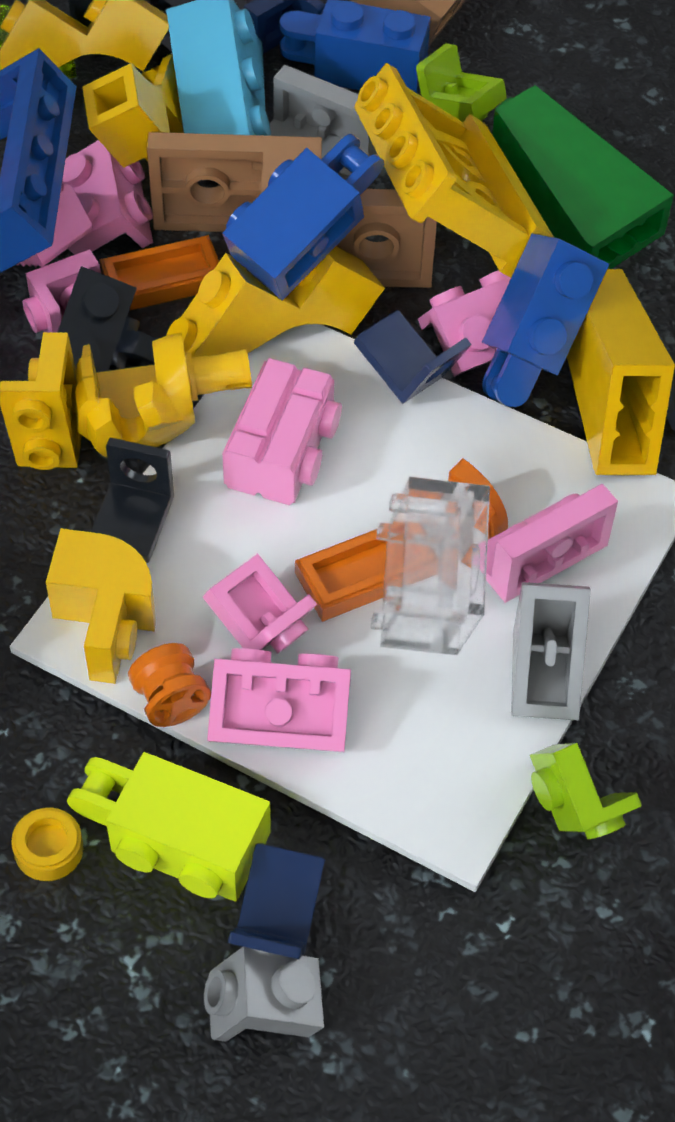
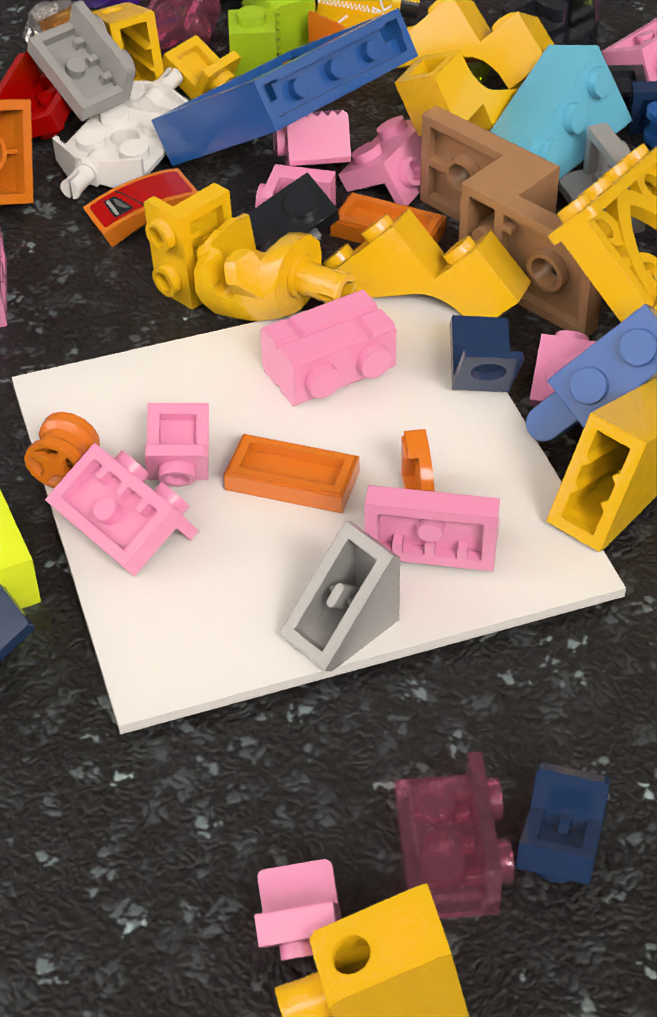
camera: 45 degrees right, 10 degrees down
(105, 585) = (88, 374): yellow brick -> none
(136, 502) = (179, 338): black bracket -> none
(301, 214) = (473, 197): blue brick -> none
(434, 566) = (303, 473): clear container -> none
(569, 793) = (250, 703): lime bracket -> none

